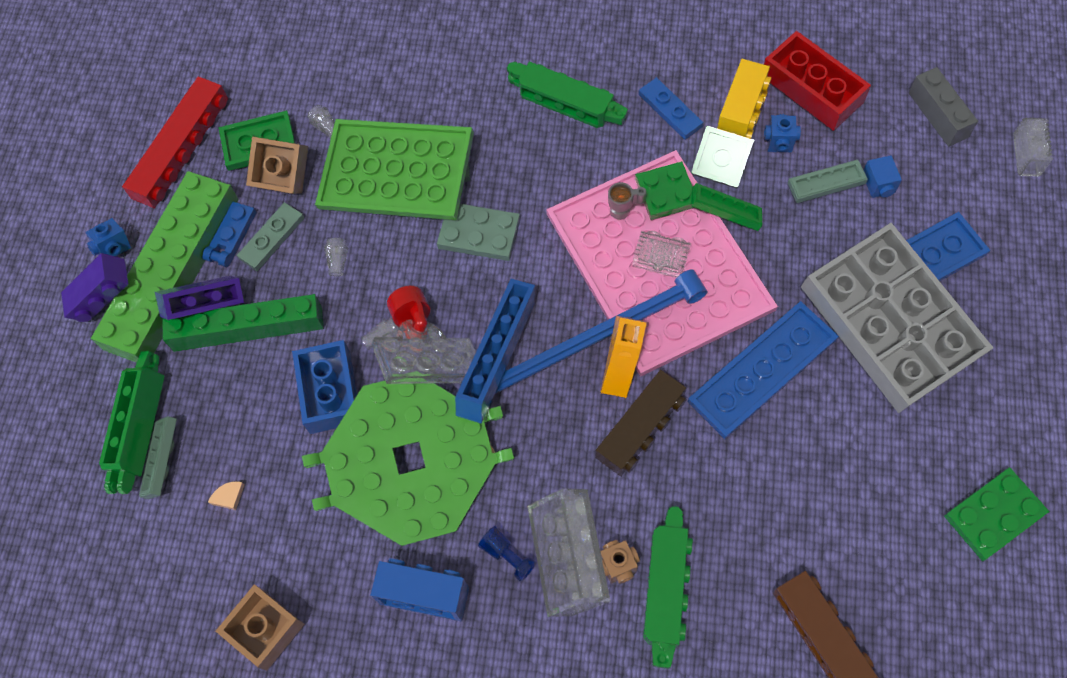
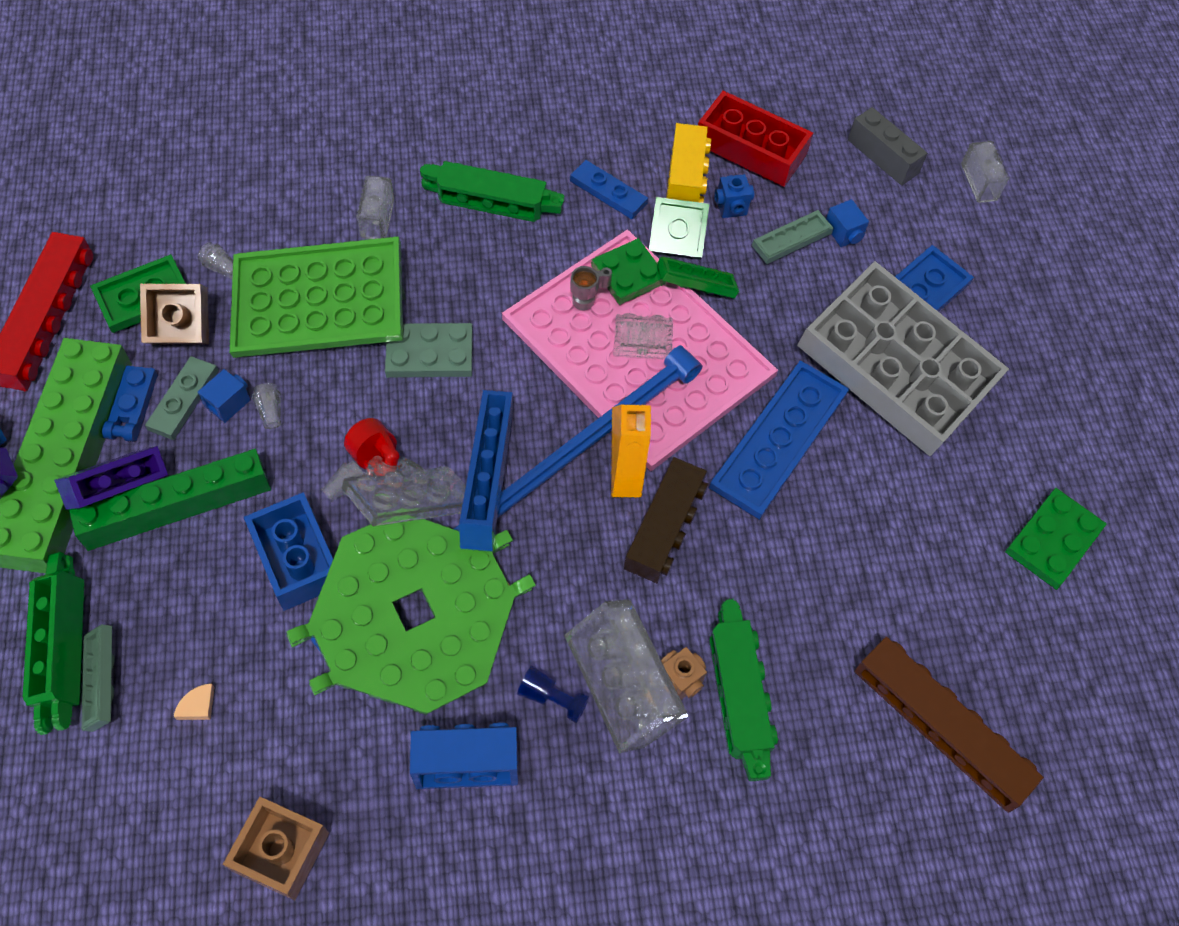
camera: 25 degrees left, 5 degrees down
(303, 241) = (224, 395): none -> blue brick
(462, 94) = (375, 207): none -> clear brick

